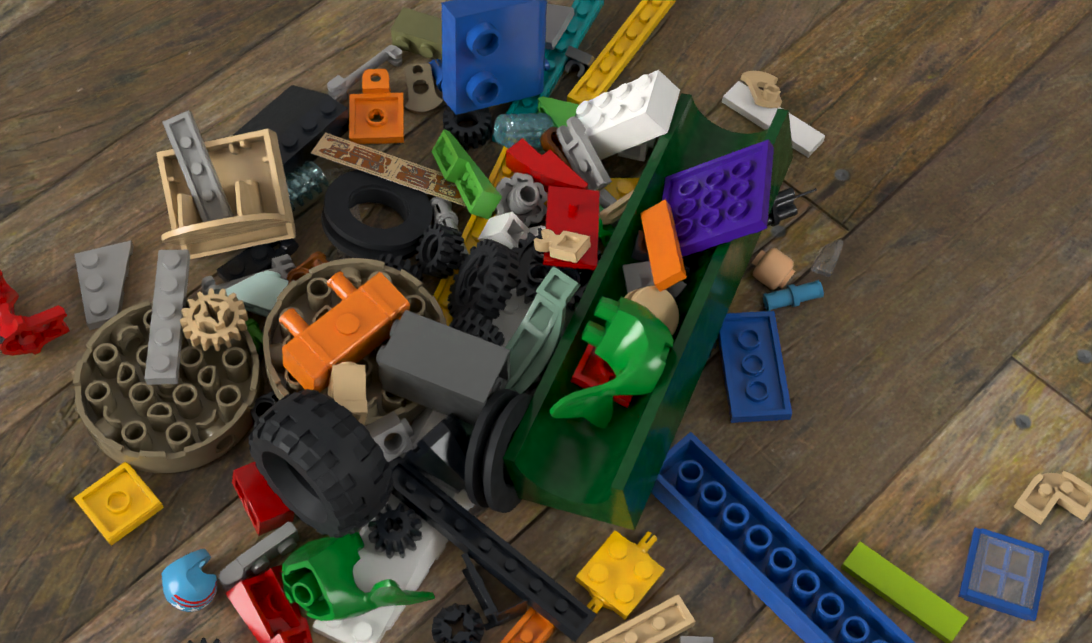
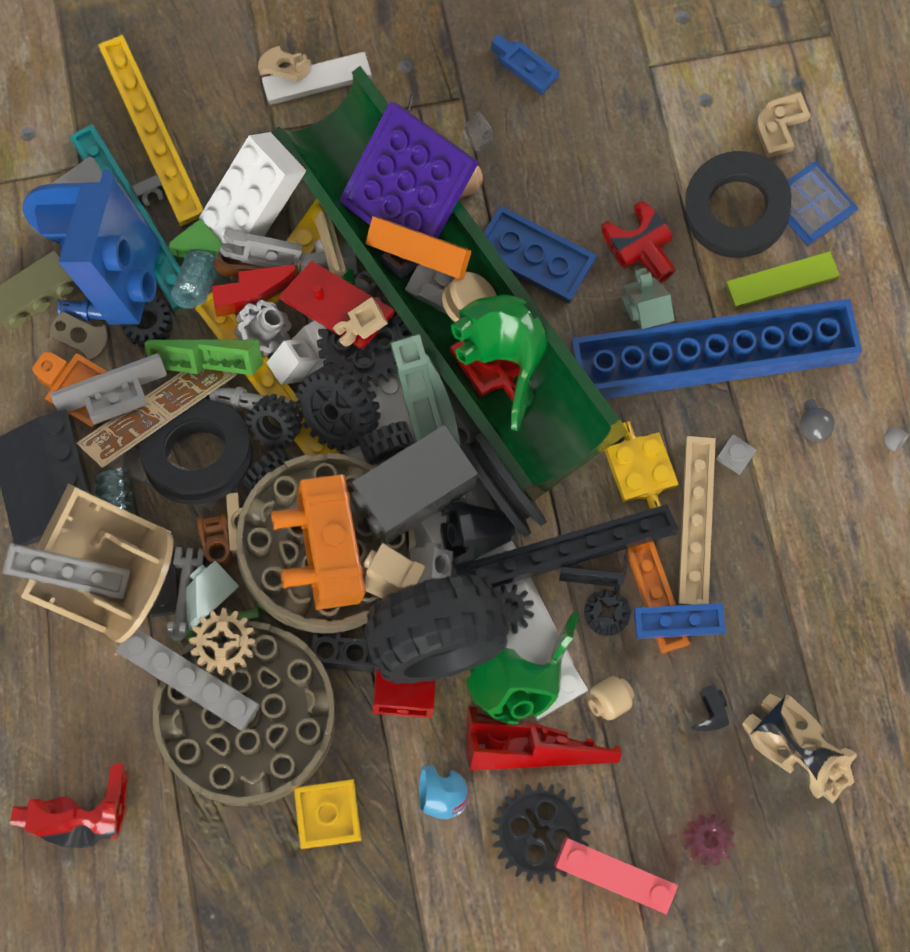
camera: 55 degrees left, 15 degrees up
(102, 281) = (92, 718): light grey wing -> none
(259, 556) = (453, 730): light grey hinge -> none
(338, 86) = (19, 338): light grey hinge -> none
(386, 129) = (112, 391): none -> light grey bracket
(778, 475) = (647, 301): none -> sand green brick
(793, 295) = (493, 181): dark azure pin -> none
(835, 447) = (641, 244): none -> red connector
(921, 257) = (525, 64): none -> blue hinge
(932, 541) = (738, 167): none -> black tyre

